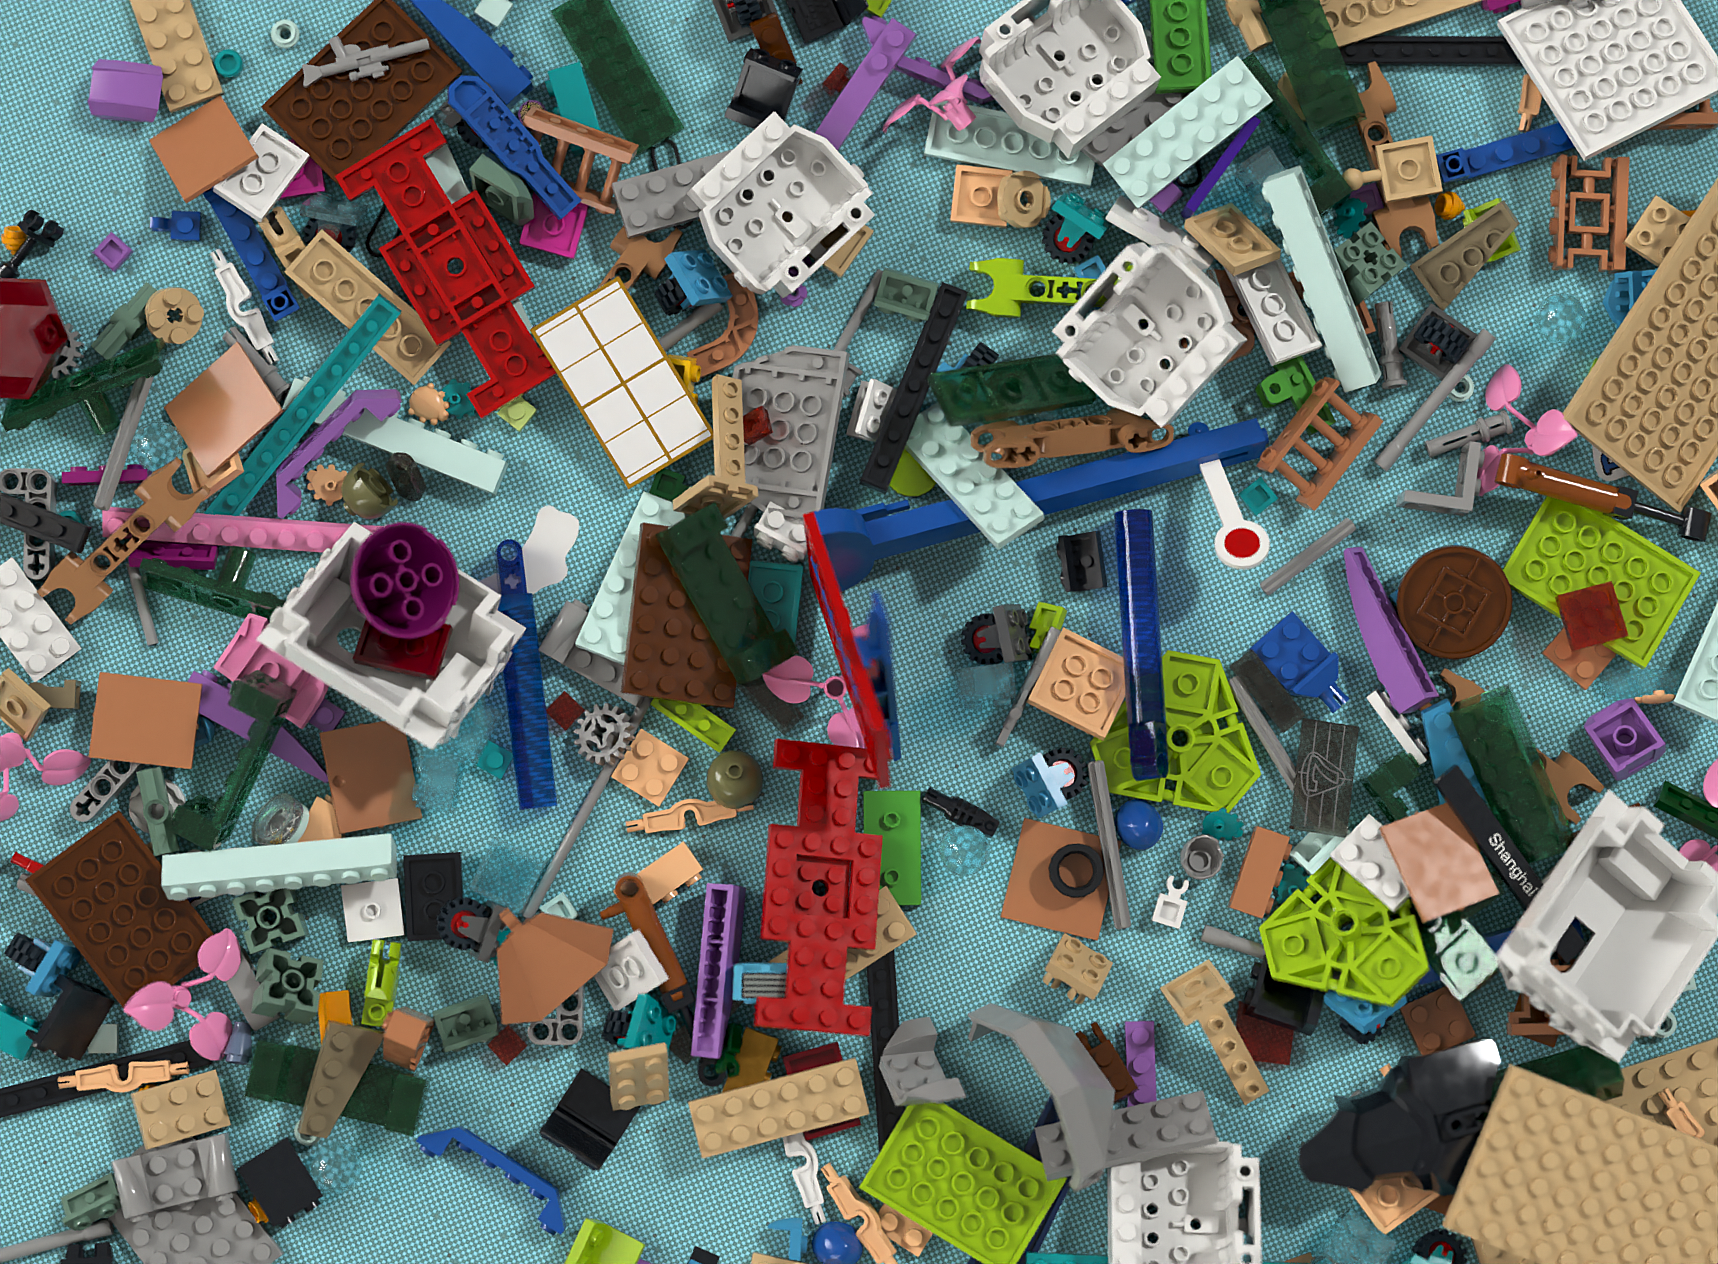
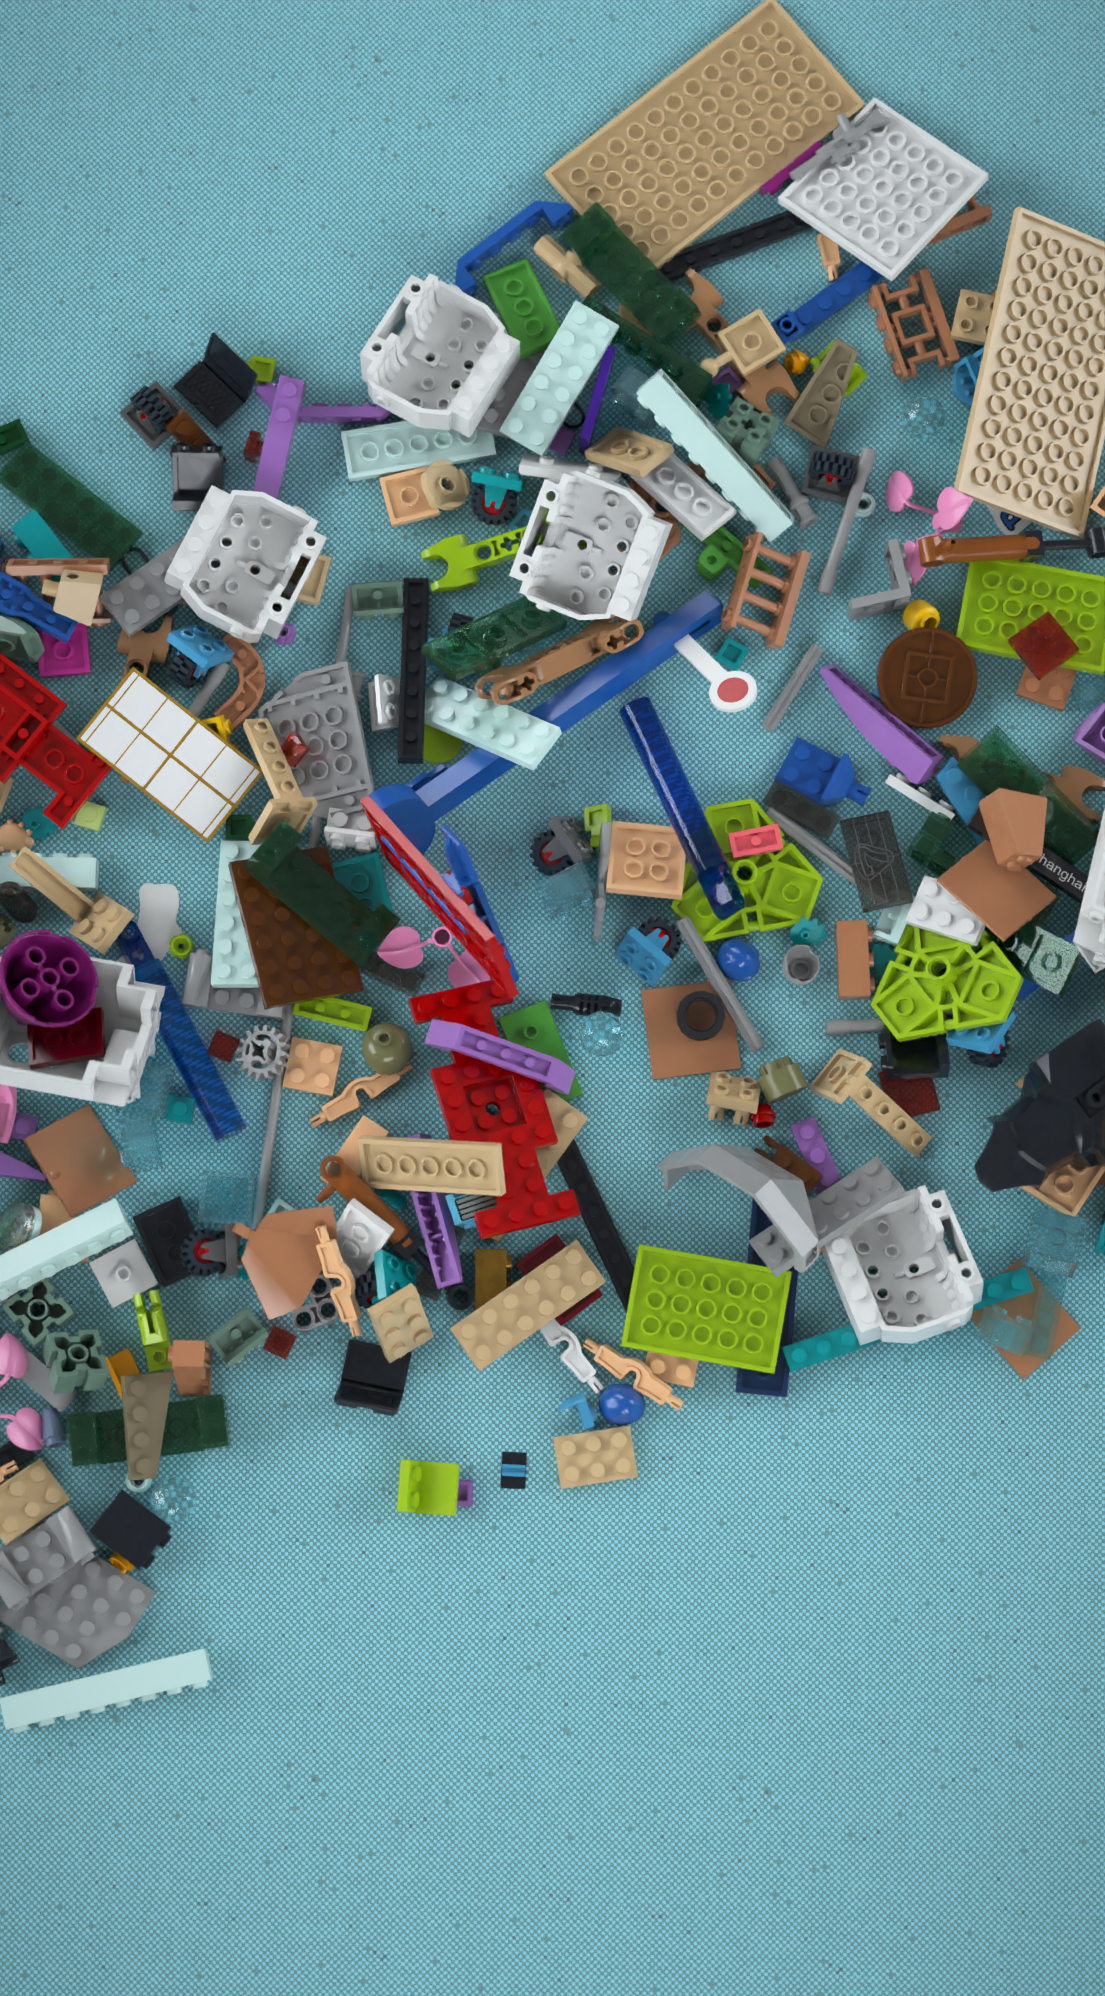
camera: 20 degrees left, 5 degrees down
(482, 528) = (97, 920): none -> tan bracket
(552, 1214) = (253, 1445): blue slope -> none
(560, 595) = (174, 946): none -> lime plate
(587, 172) = (75, 594): none -> tan torso
(592, 993) = (334, 1267): none -> light nougat piece
(679, 937) = (393, 1198): none -> teal piece
(731, 1047) = (468, 1269): dark green plate -> none
(733, 927) = (432, 1165): none -> tan plate
(849, 835) = (502, 1053): none -> medium lavender slope
(913, 1068) = (629, 1231): light grey piece -> none
(955, 108) = (362, 431): bright pink plant -> none
(1081, 562) = (607, 761): black bracket -> none
(1102, 1003) = (764, 1117): none -> red plate
(1134, 971) = (781, 1079): none -> olive piece
(1170, 908) = (790, 1017): white plate -> none
(1204, 708) = (755, 841): none -> coral plate
(1437, 1021) = (1047, 1024): nougat plate -> none
(1474, 532) = (920, 614): none -> yellow head
(1482, 426) = (893, 528): light grey pin -> none
(1483, 807) = (1014, 826): none -> nougat slope

